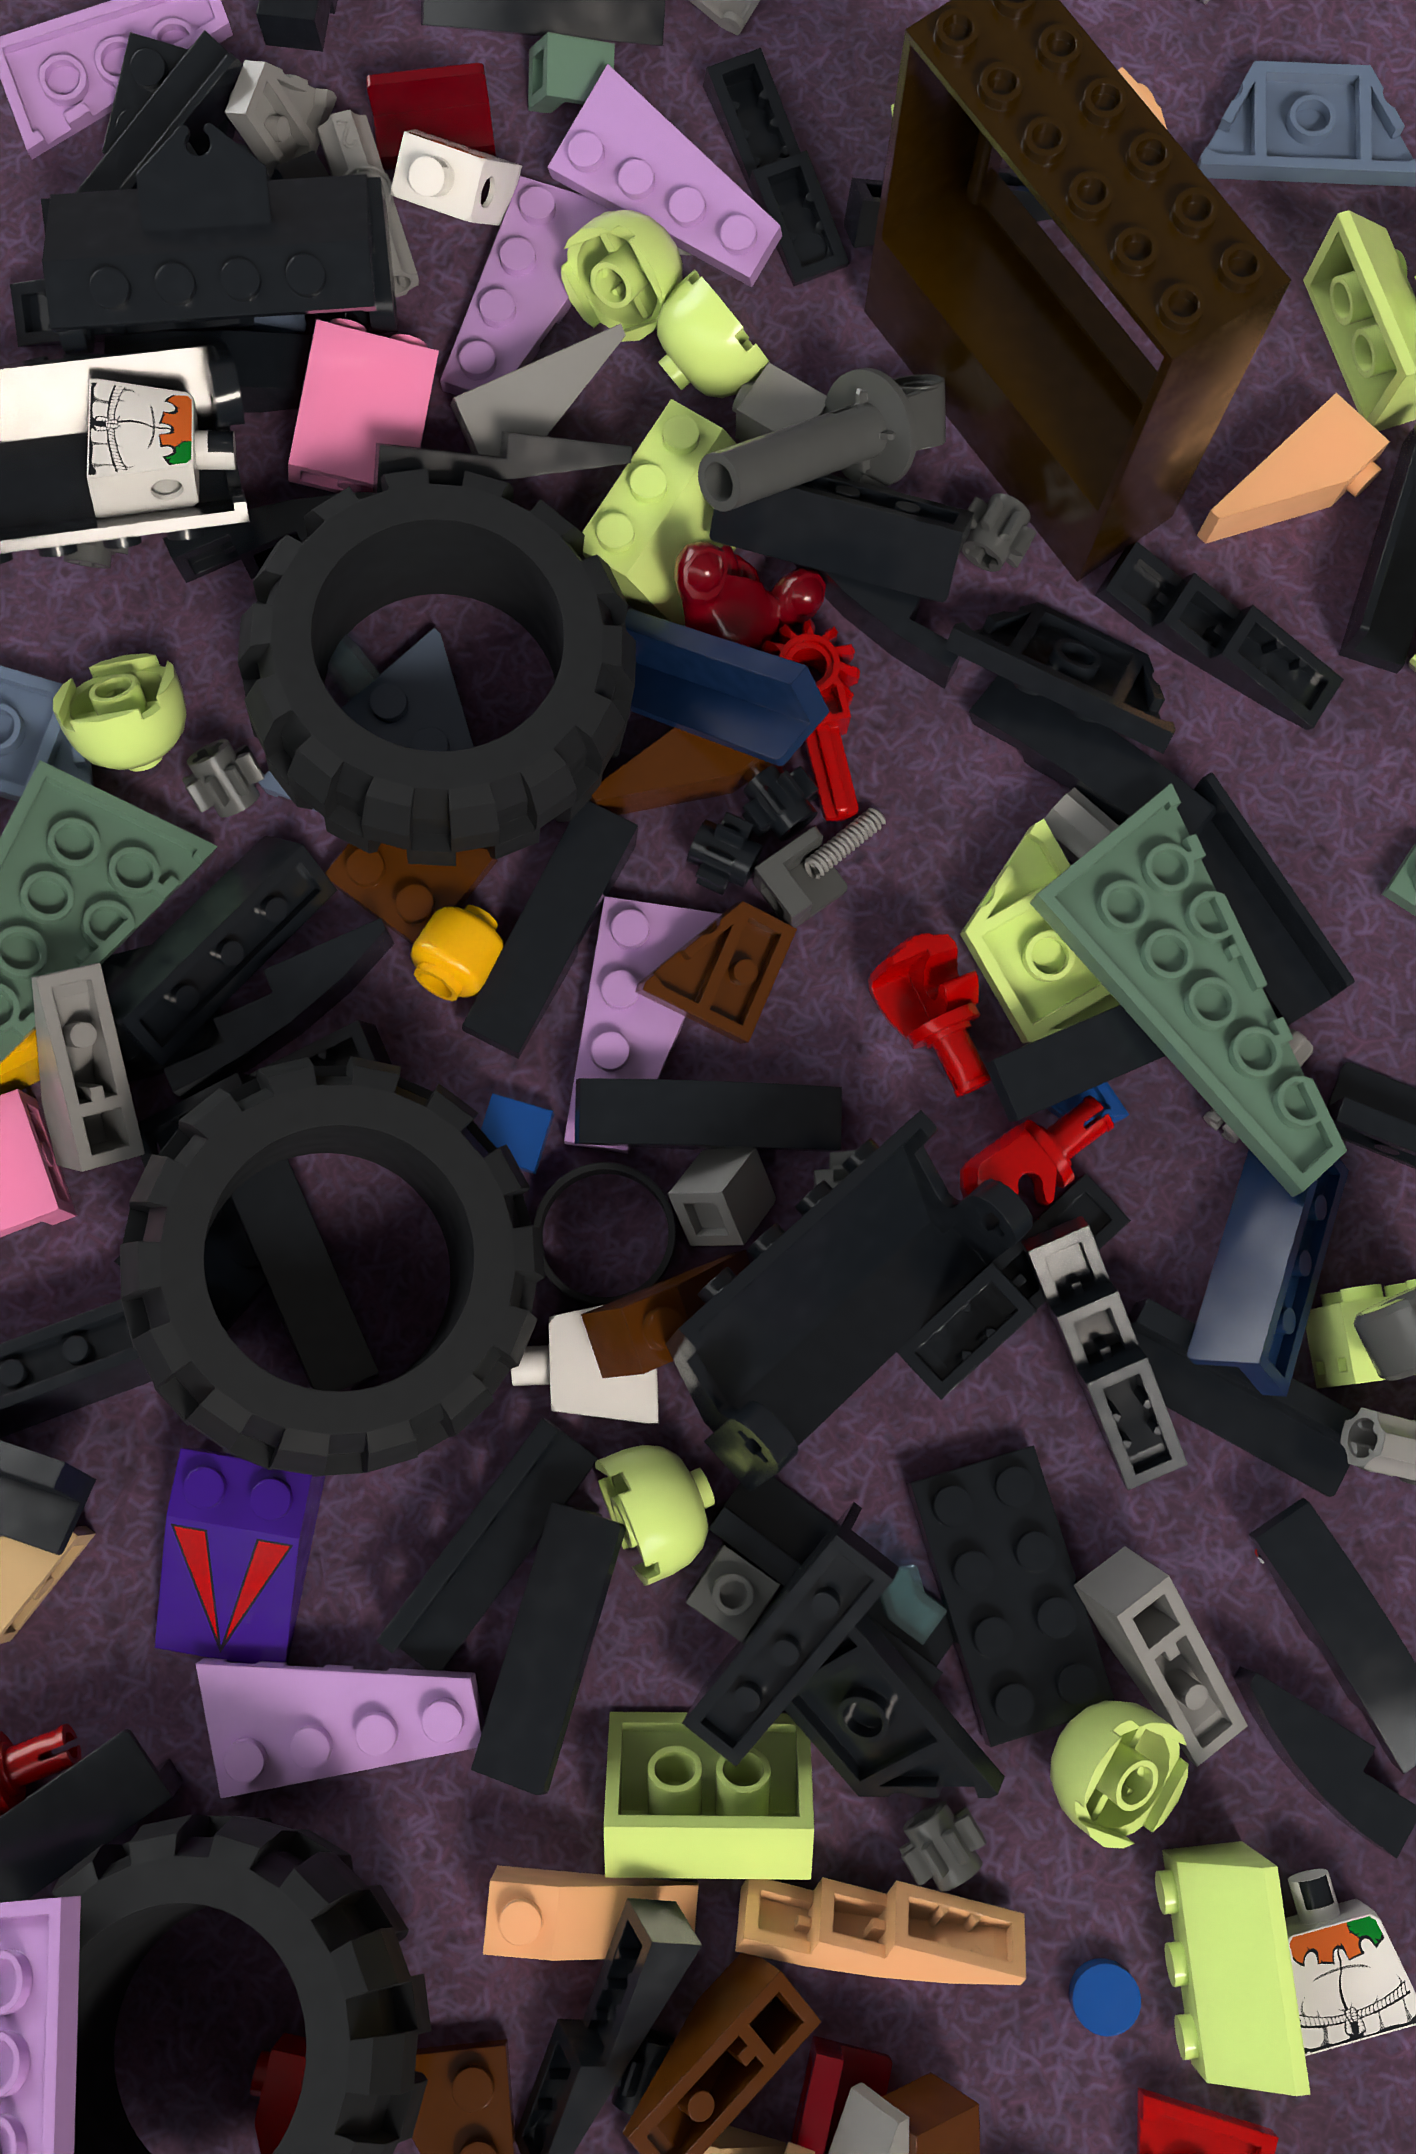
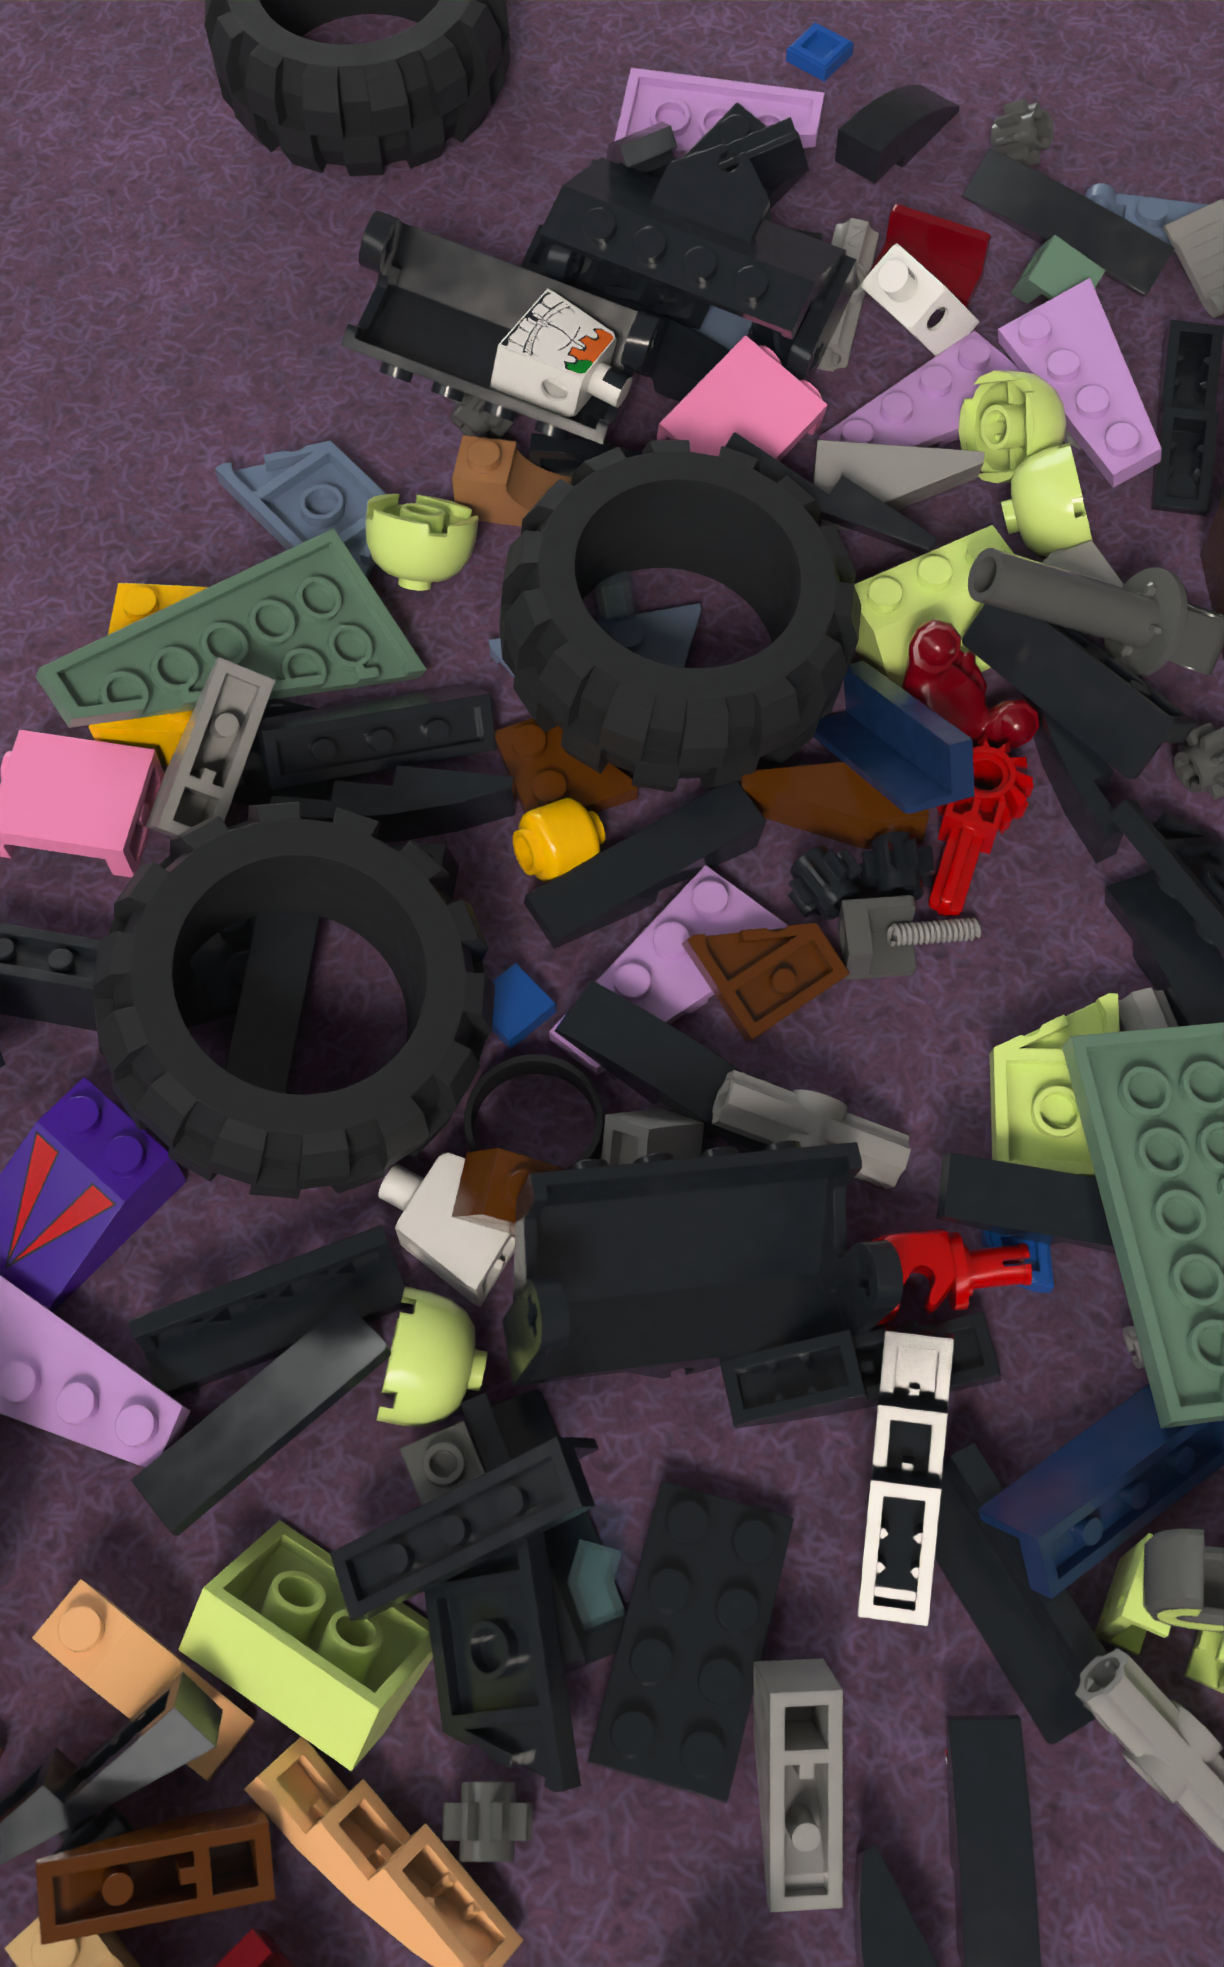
camera: 35 degrees right, 15 degrees down
(79, 157) = (645, 150): none -> black slope
(171, 606) = (498, 480): none -> medium nougat arch
(223, 778) = (463, 621): dark grey gear -> none
(277, 112) = (810, 196): light grey wing -> none
(853, 1102) = (812, 1118): none -> light grey piece
(932, 1005) = (930, 1092): red piece -> none
(1118, 1771) = (690, 1855): yellowish green cylinder -> none

